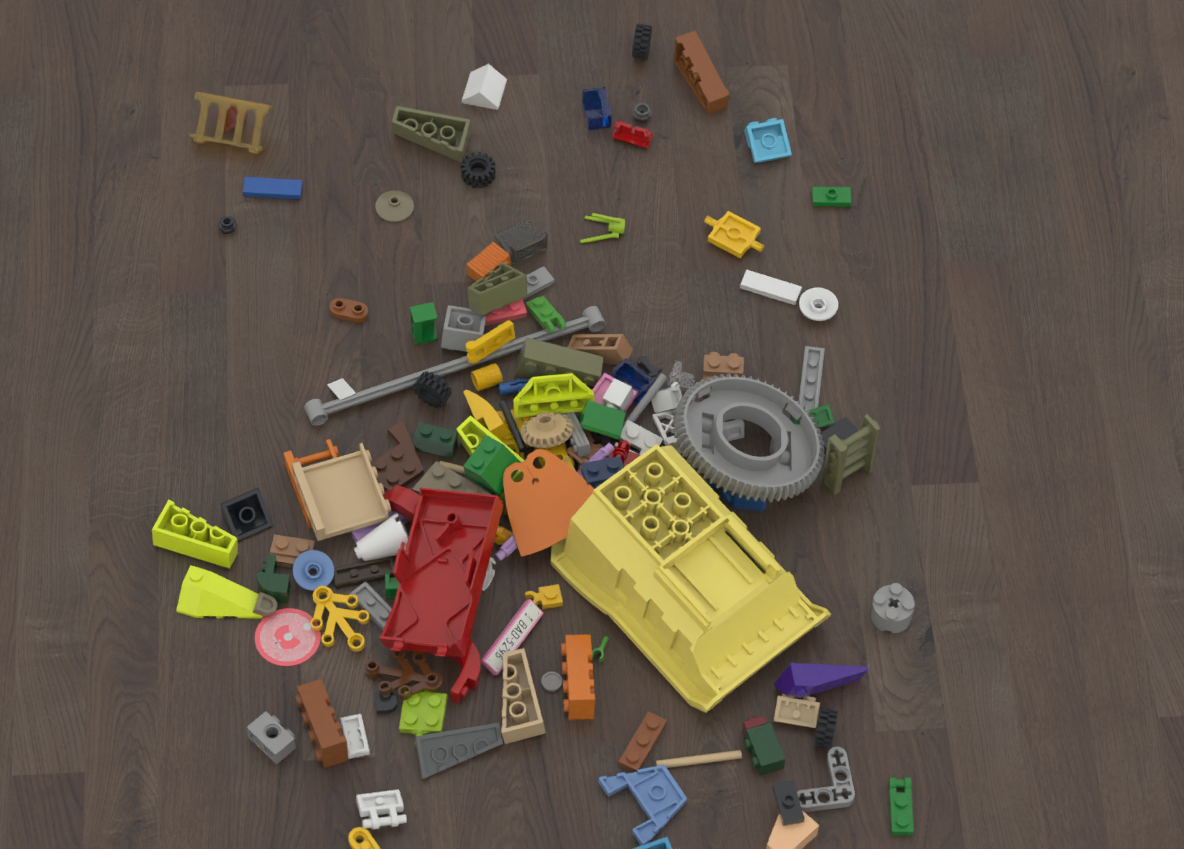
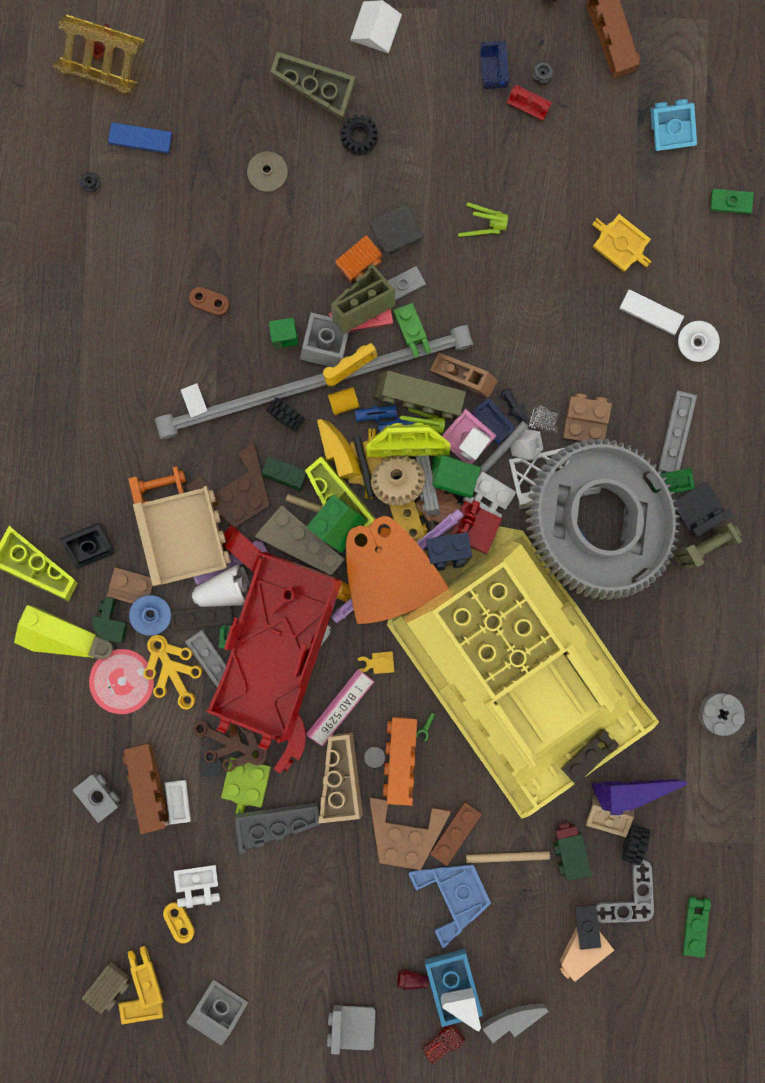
camera: 10 degrees right, 30 degrees up
(590, 756) = (405, 844): none -> medium nougat wing
(765, 642) = (589, 756): none -> dark brown plate

